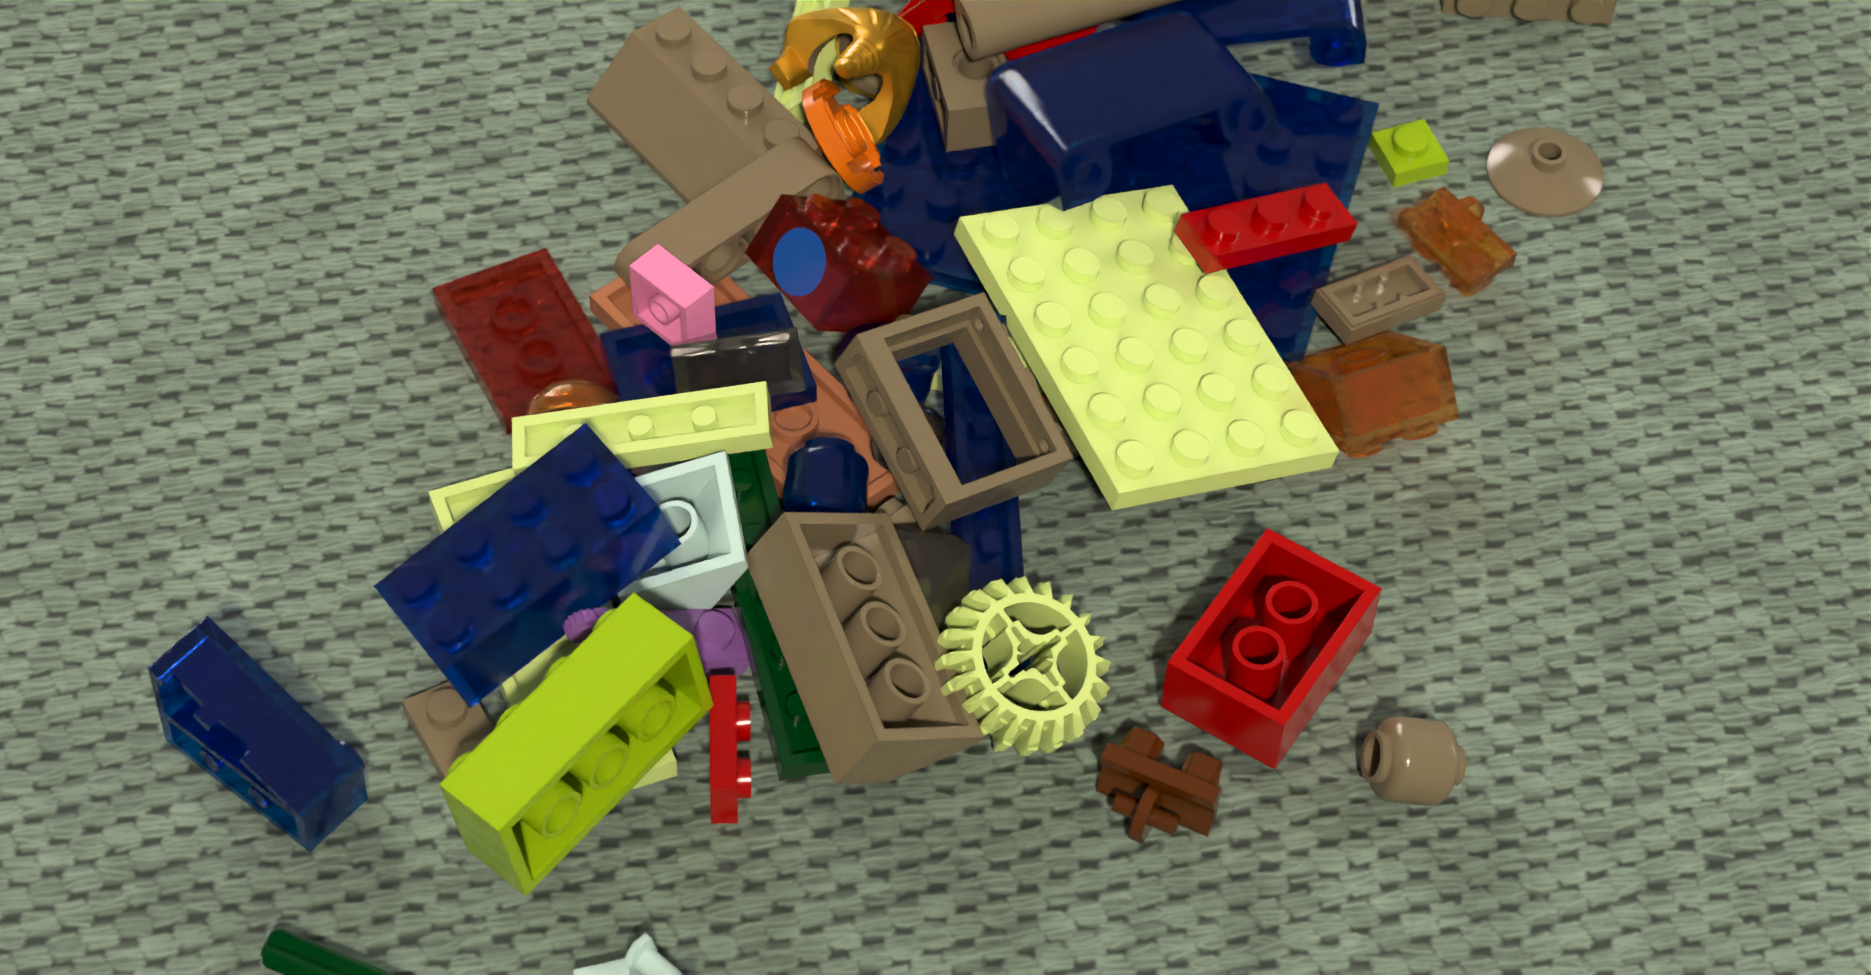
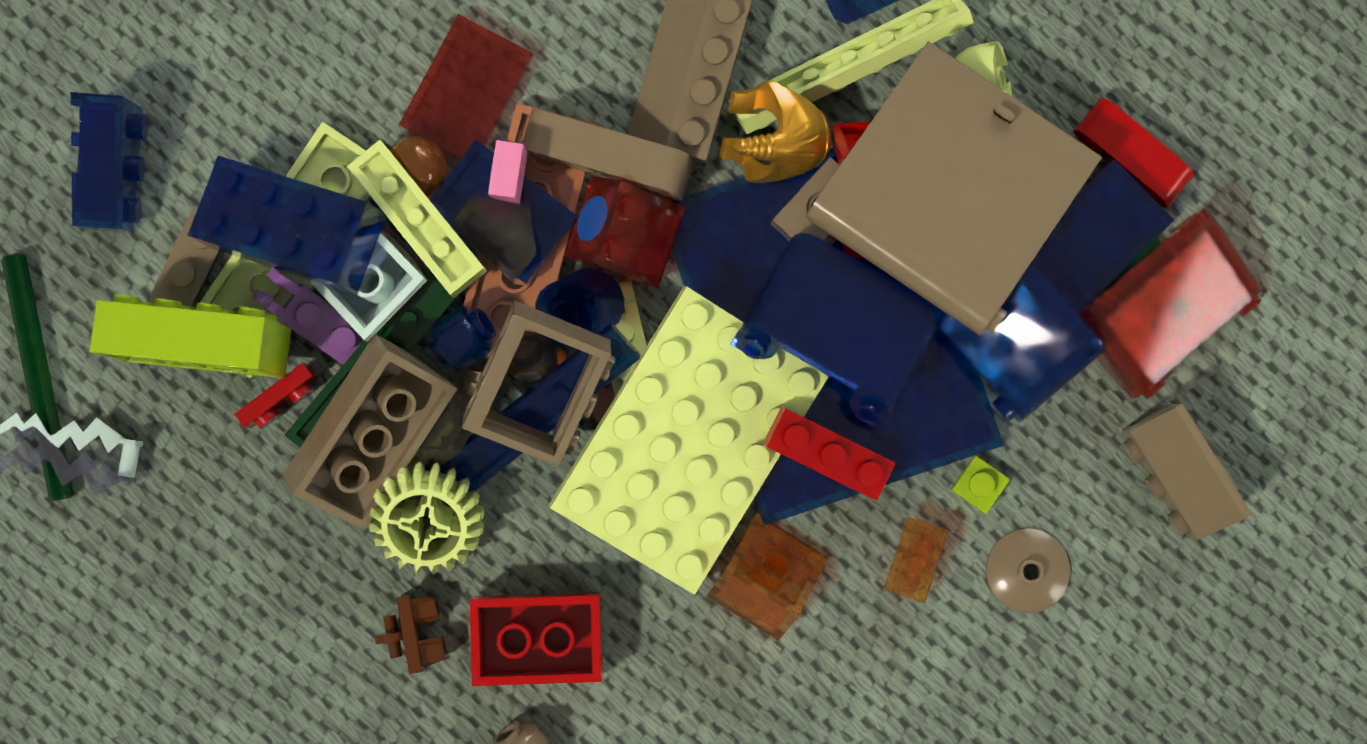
camera: 55 degrees right, 35 degrees up
(842, 136) = (710, 171): orange plate -> none
(1378, 299) = (842, 539): dark tan plate -> none

